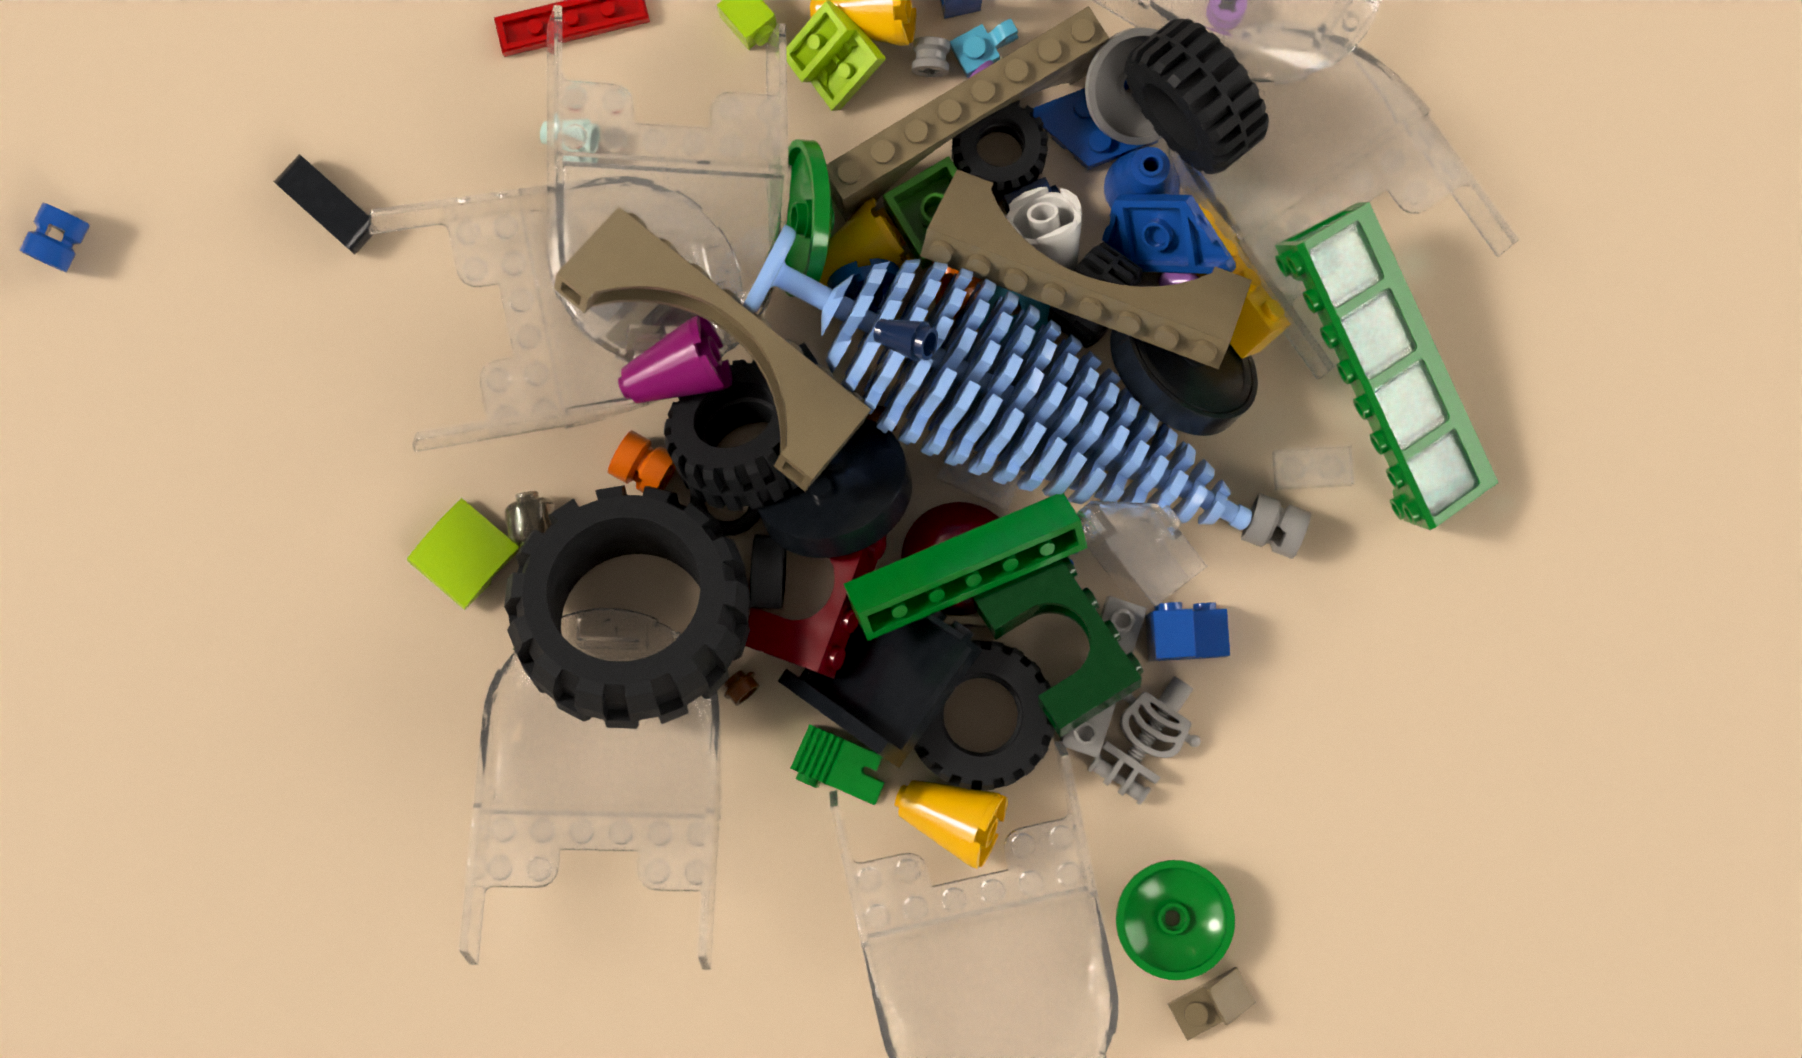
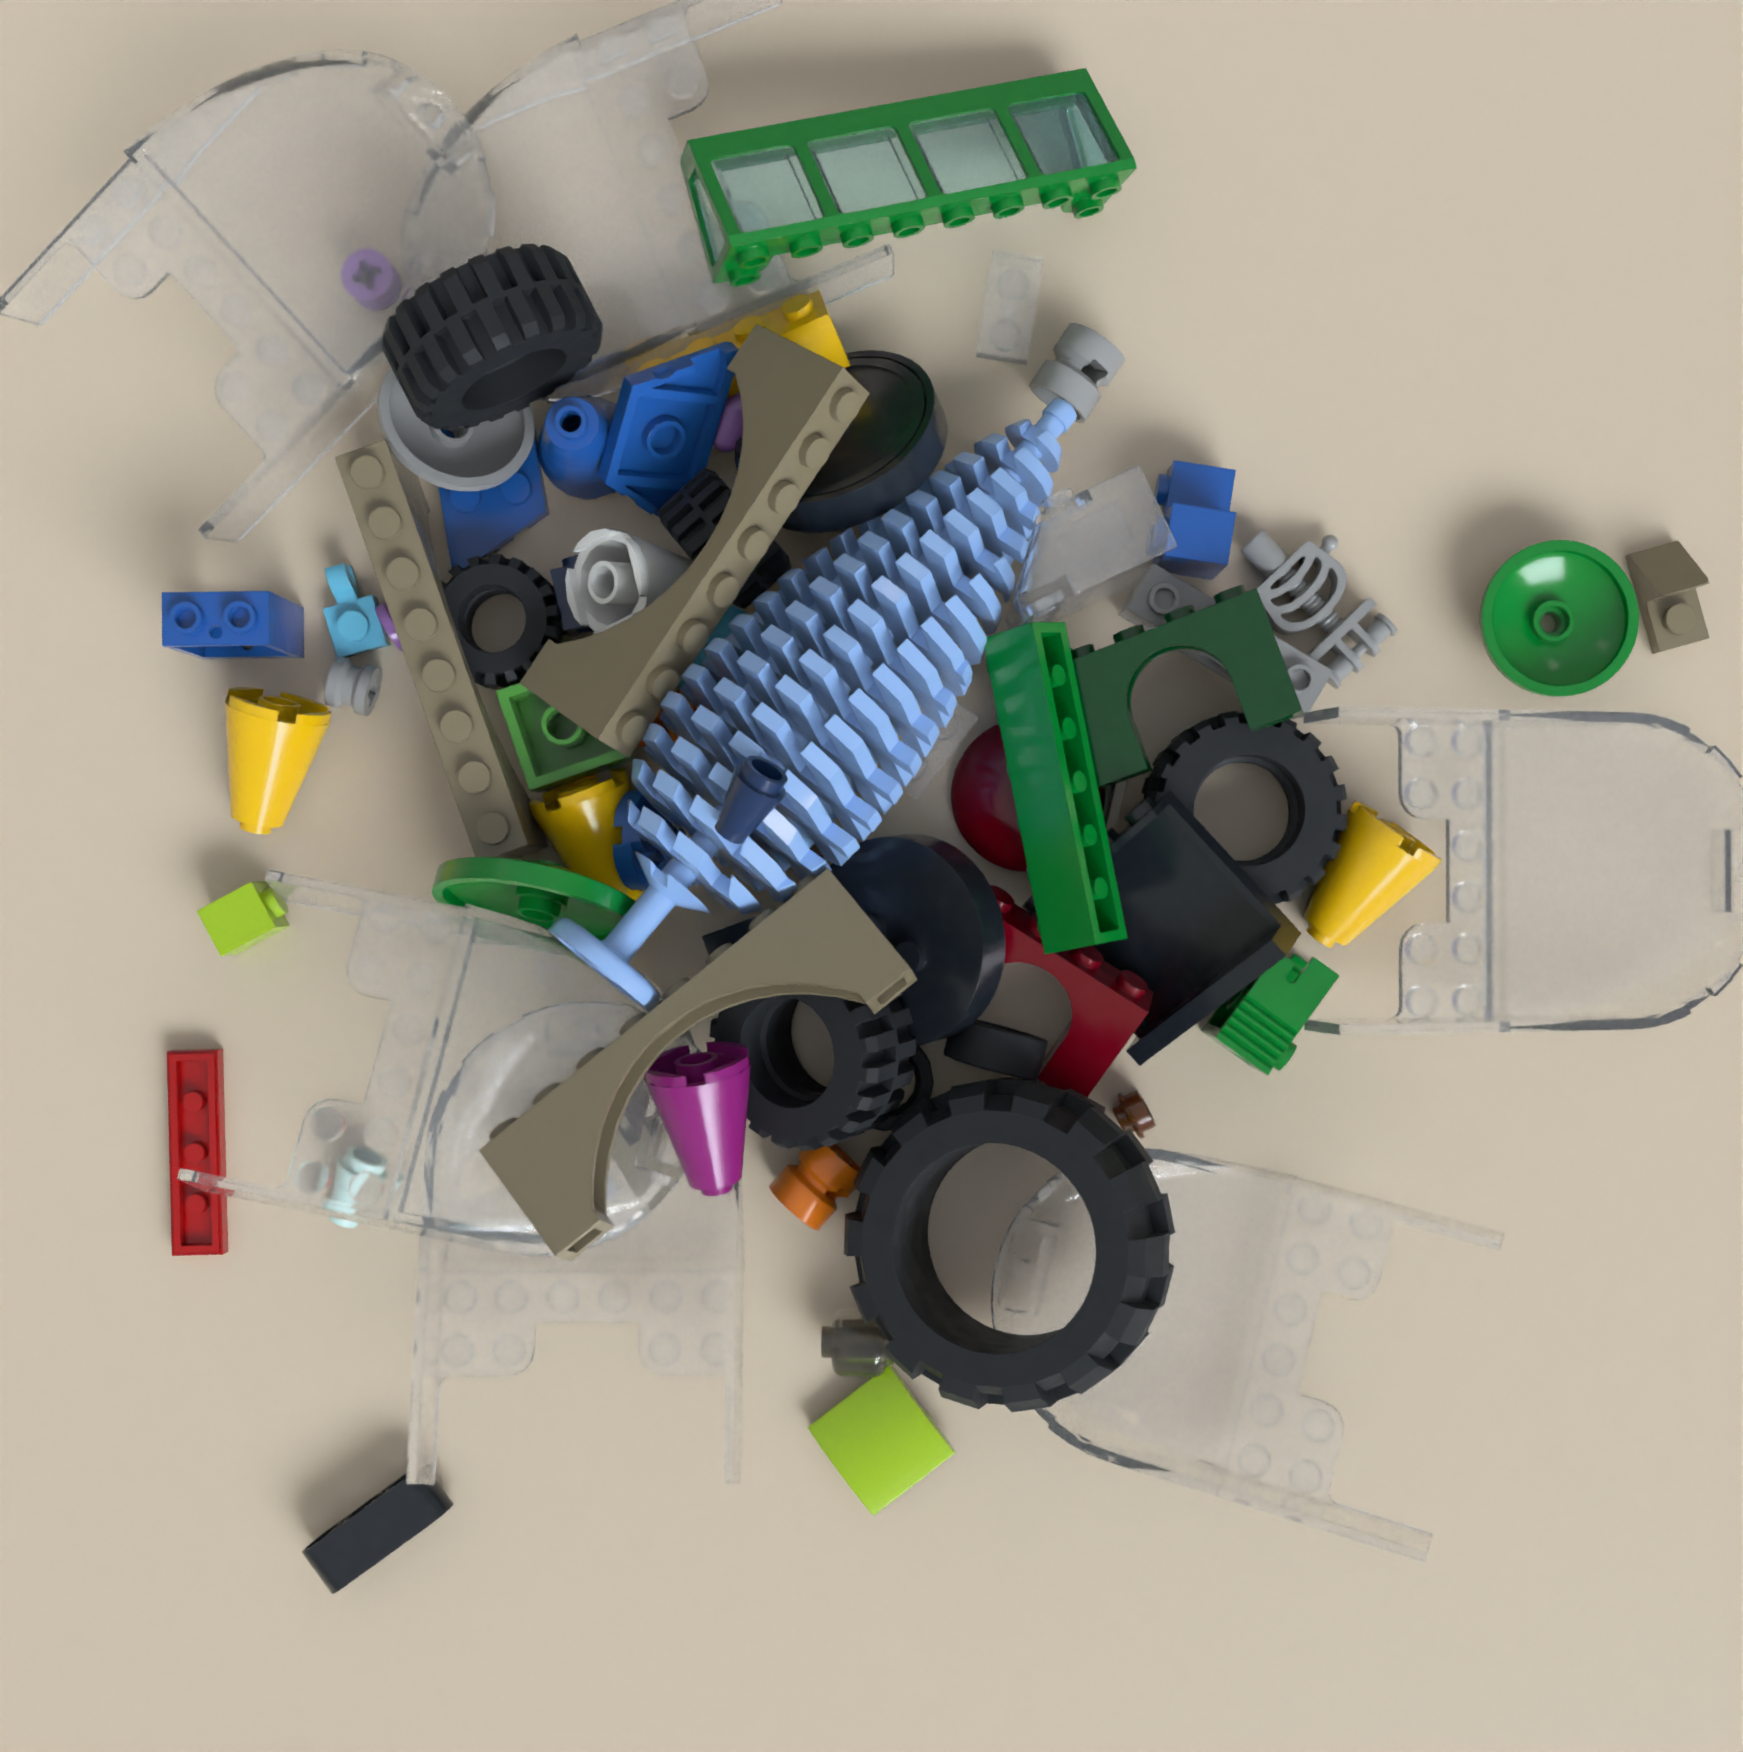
camera: 75 degrees left, 5 degrees up
(833, 55) = (323, 815): lime slope -> none

